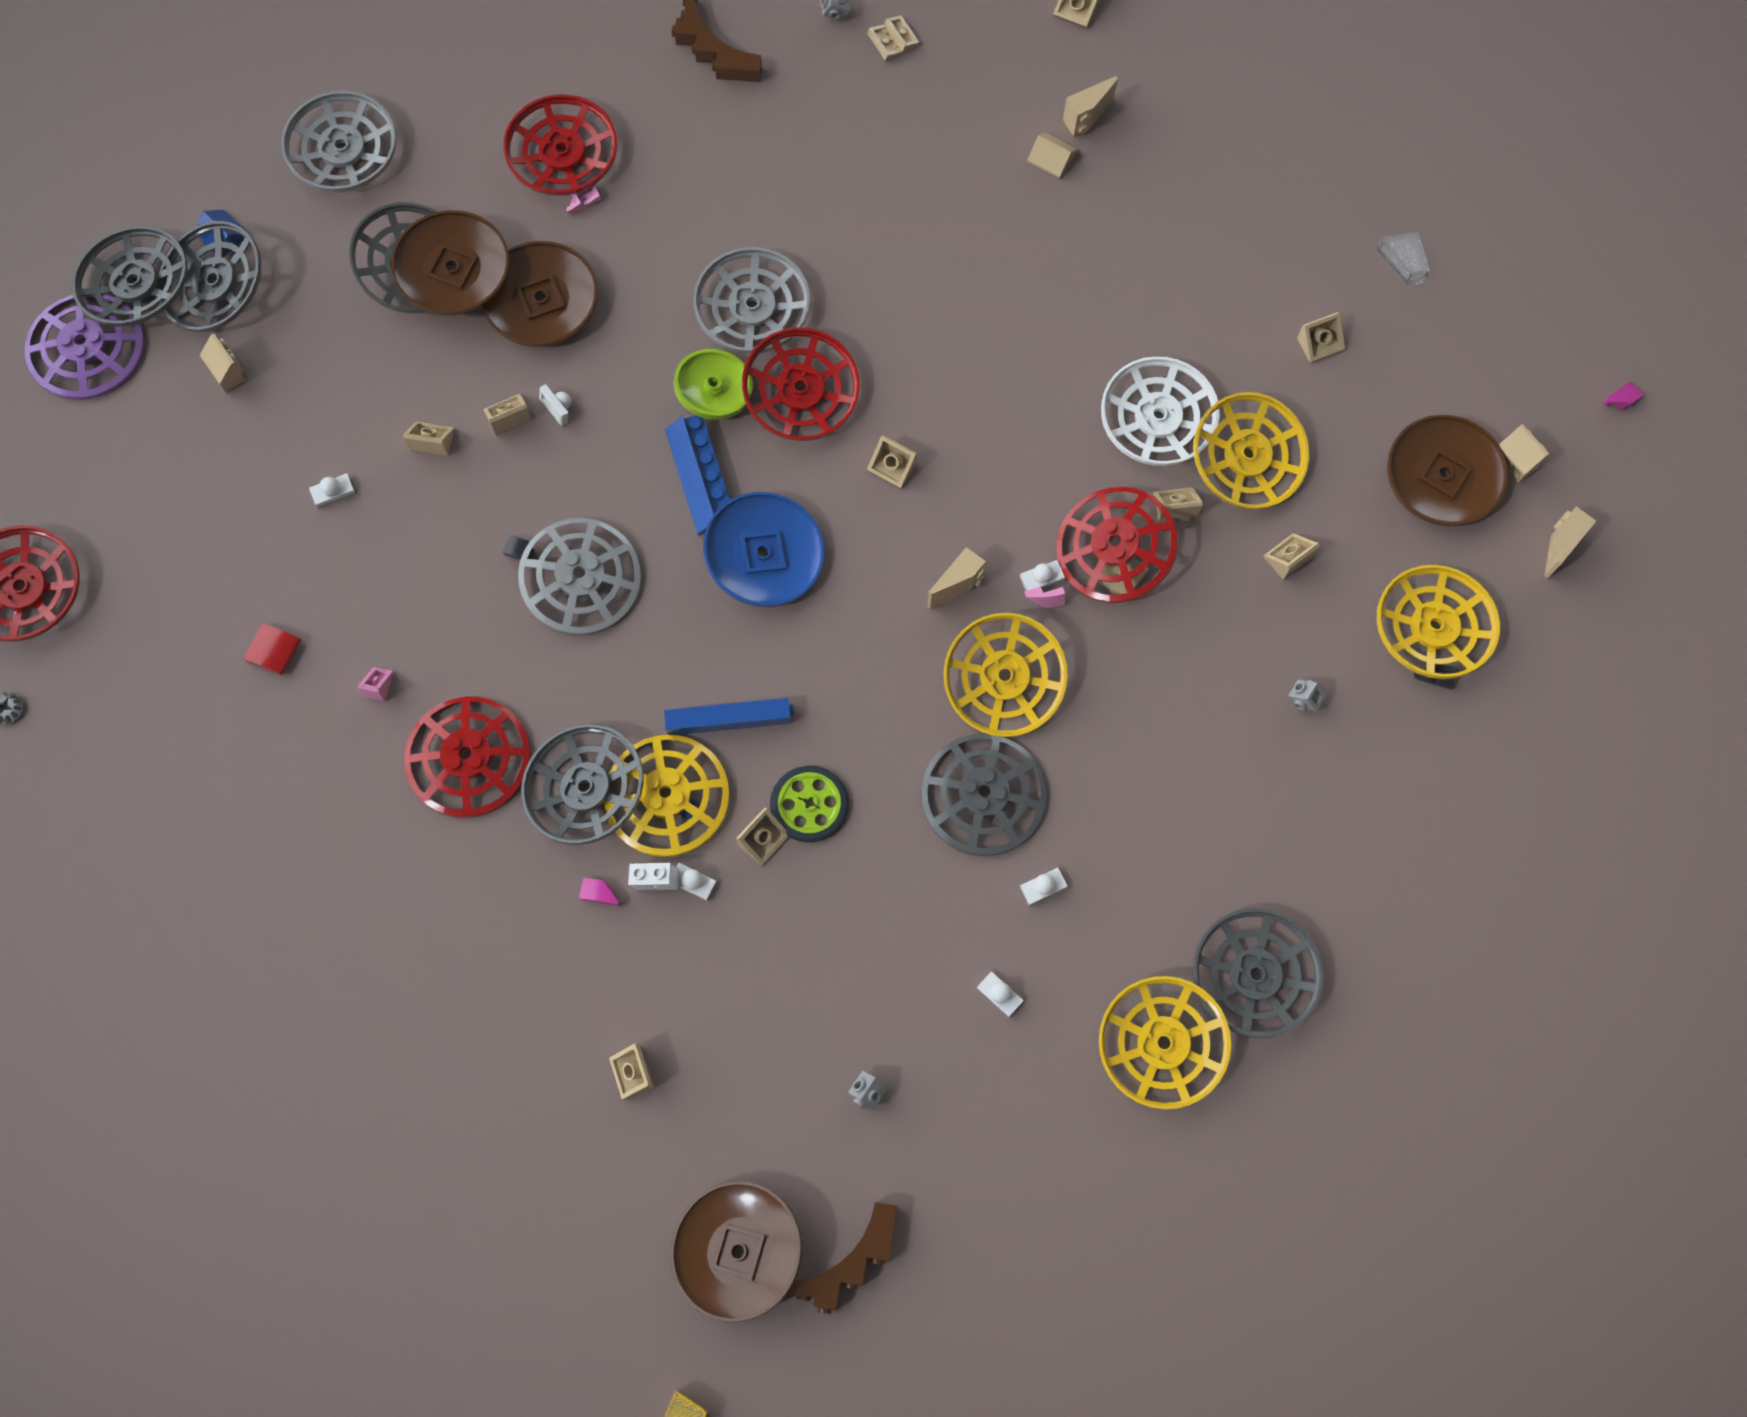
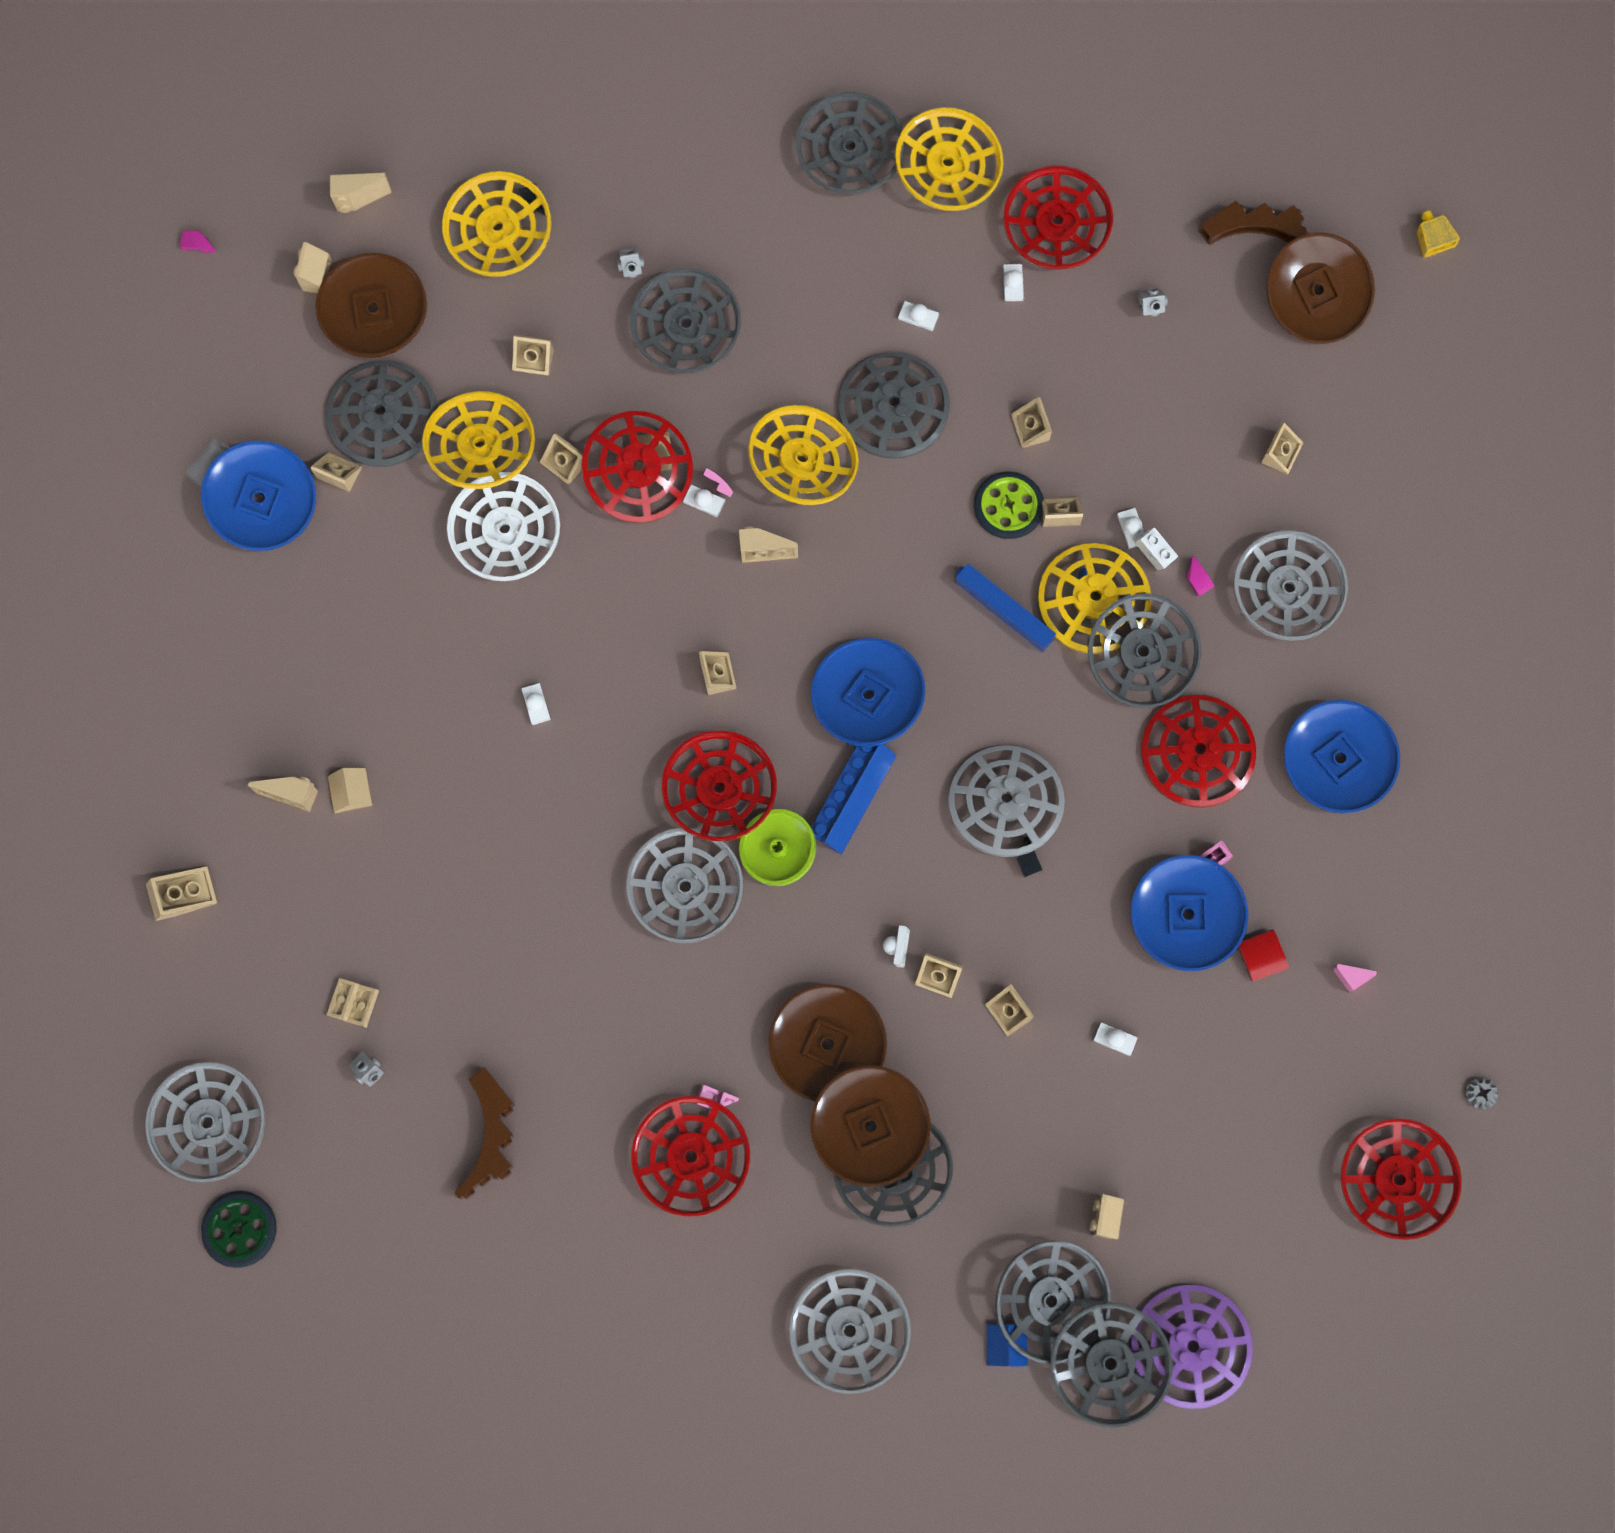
camera: 130 degrees left, 5 degrees up
(183, 697) = (1352, 976): none -> bright pink slope
(318, 837) = (1362, 739): none -> blue dish
(352, 594) = (1216, 905): none -> blue dish
(503, 948) = (1295, 576): none -> light grey dish
(858, 885) = (1032, 423): none -> tan slope
(995, 323) = (536, 704): none -> white tile
(1033, 1076) = (1058, 209): none -> red dish
(1221, 685) = (685, 311): none -> dark grey dish
(1346, 419) = (380, 423): none -> dark grey dish
(1356, 241) = (253, 470): none -> blue dish

